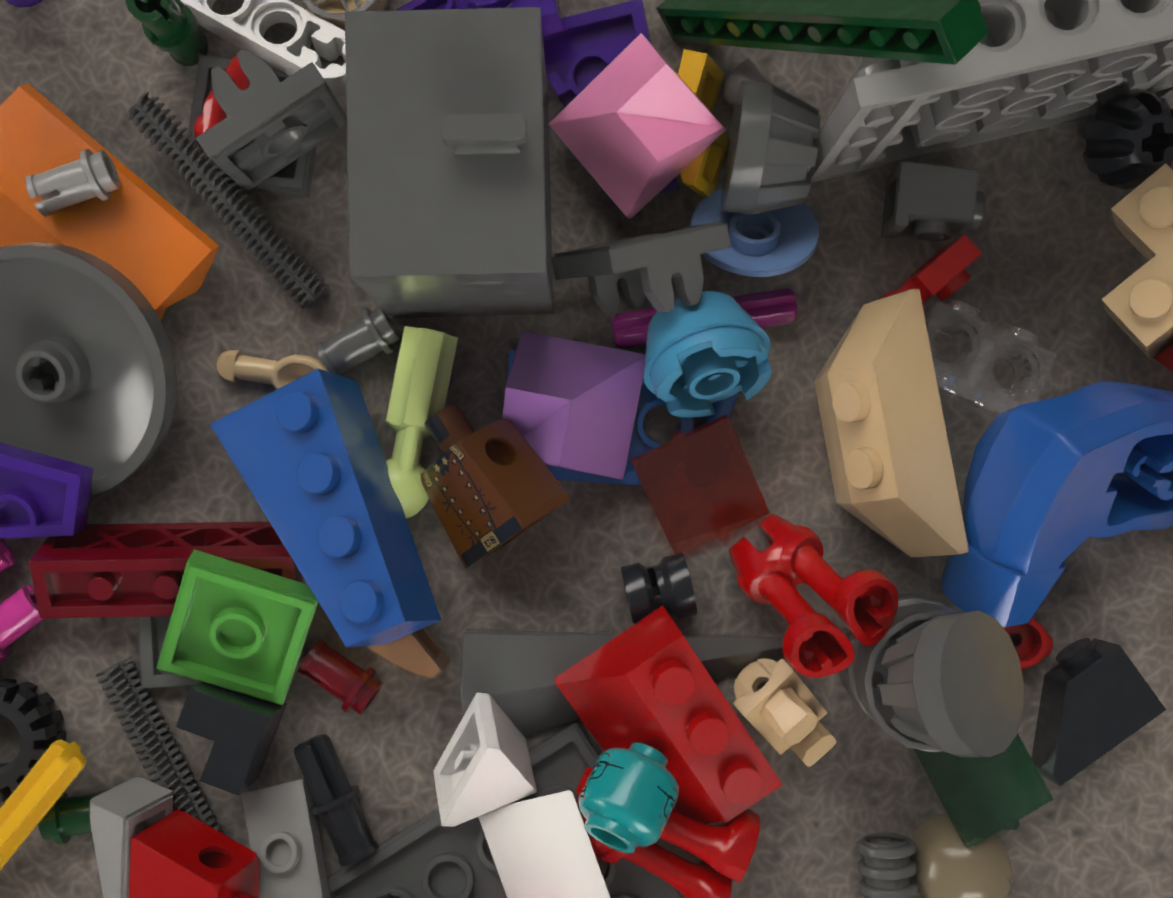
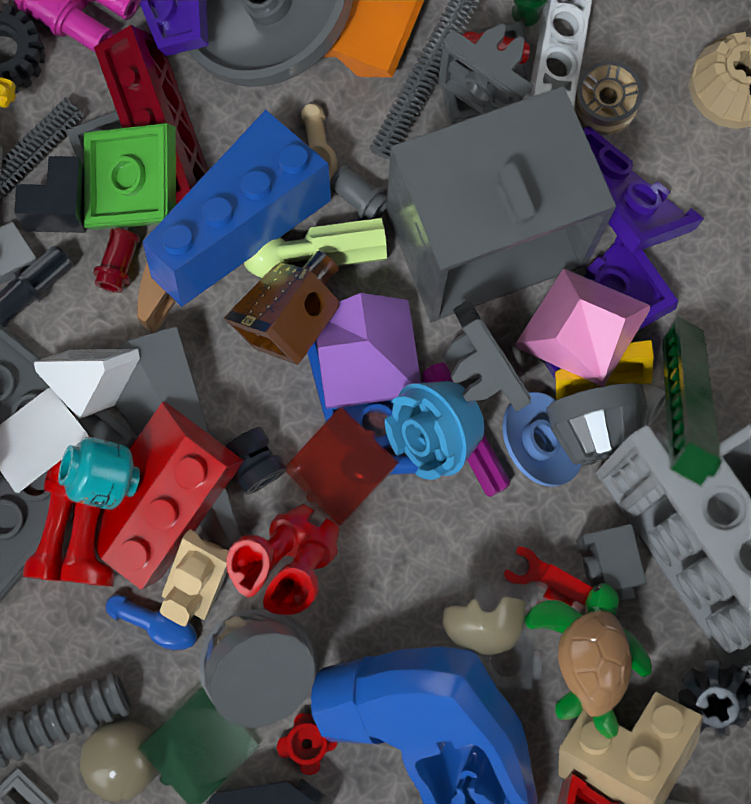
camera: 70 degrees right, 10 degrees down
(831, 767) = (159, 628): none -> blue piece
(890, 430) = (424, 577): tan wedge -> none
(988, 380) = (486, 631): none -> dark tan hair
(1055, 267) = (592, 655): none -> medium nougat animal

